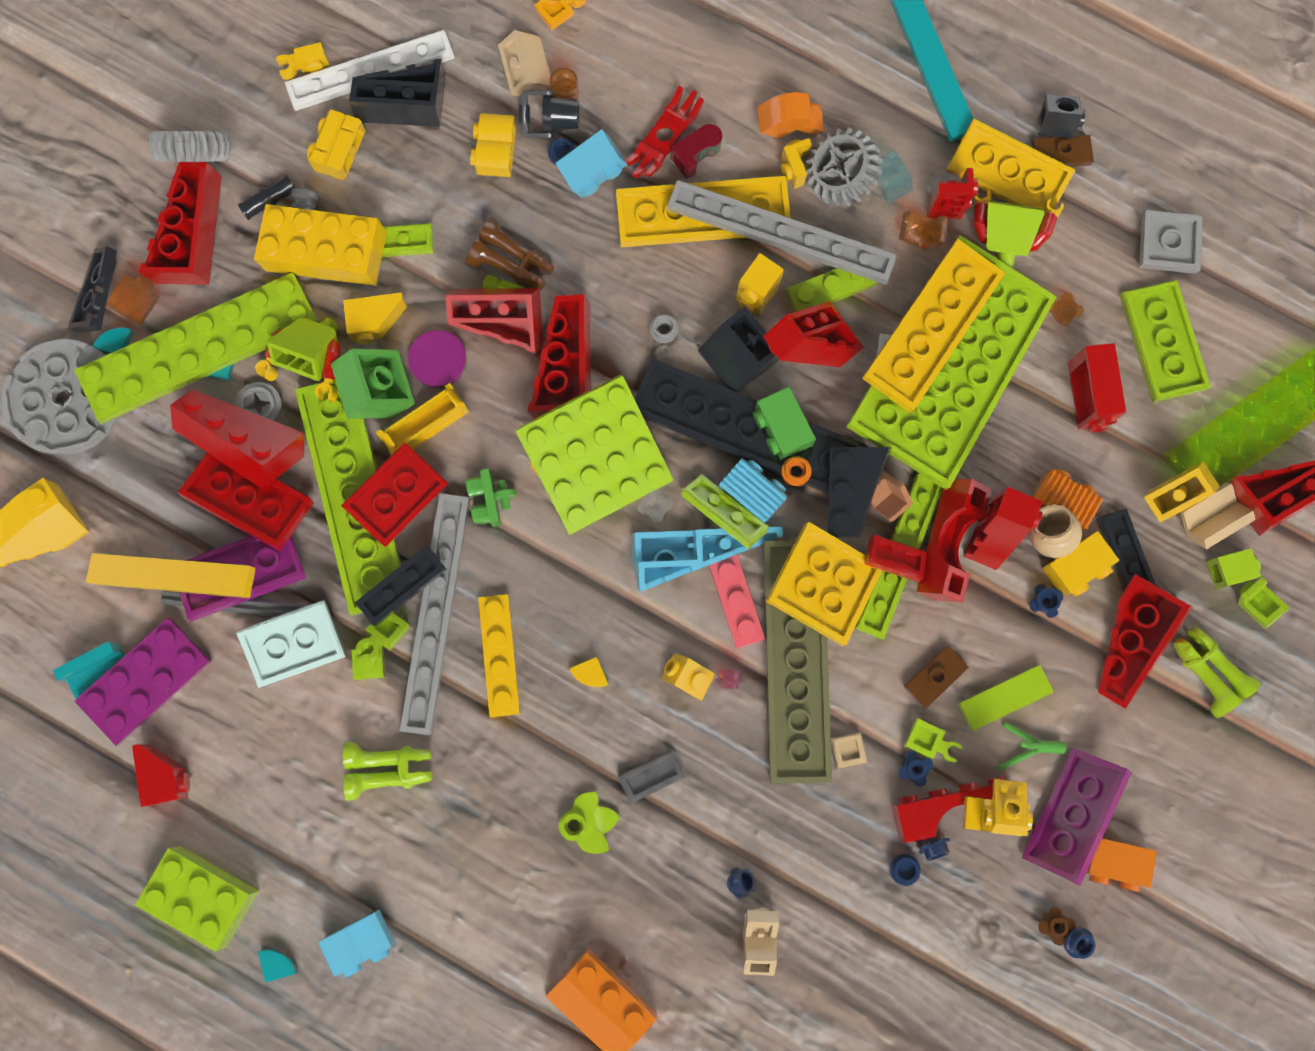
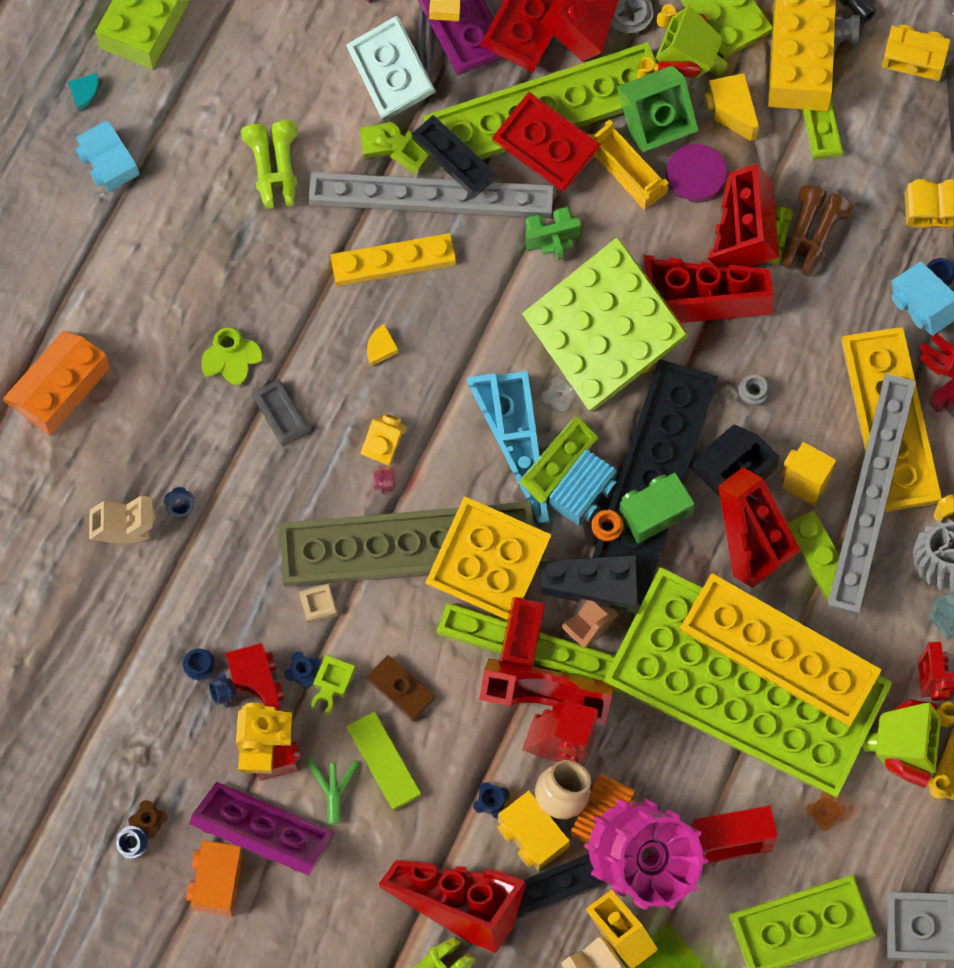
camera: 90 degrees right, 10 degrees down
(736, 602) = (466, 481): coral plate -> none
(922, 230) = (897, 648): clear orange bracket -> none
(1125, 460) = (673, 857): none -> dark pink piece

